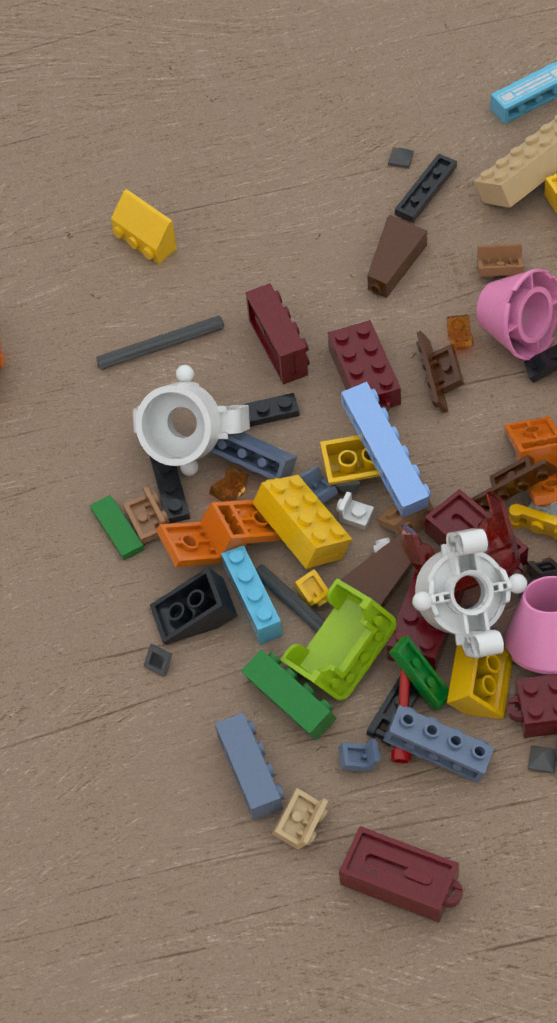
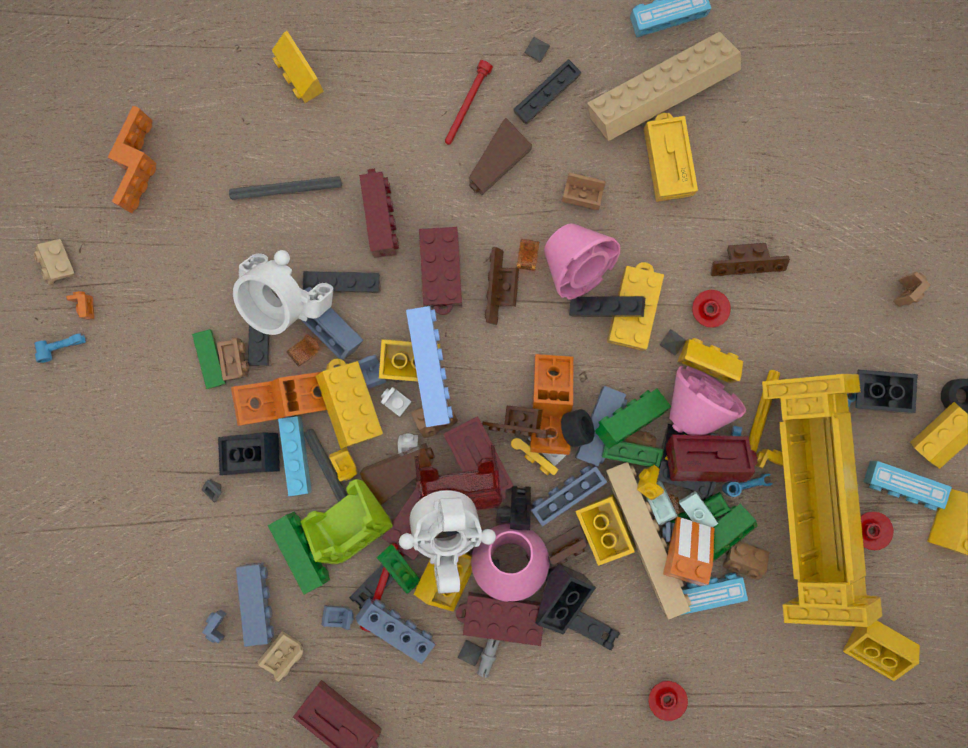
camera: 10 degrees right, 30 degrees up
(201, 805) = (213, 622): none -> sand blue bracket
(349, 186) = (484, 69): none -> red piece

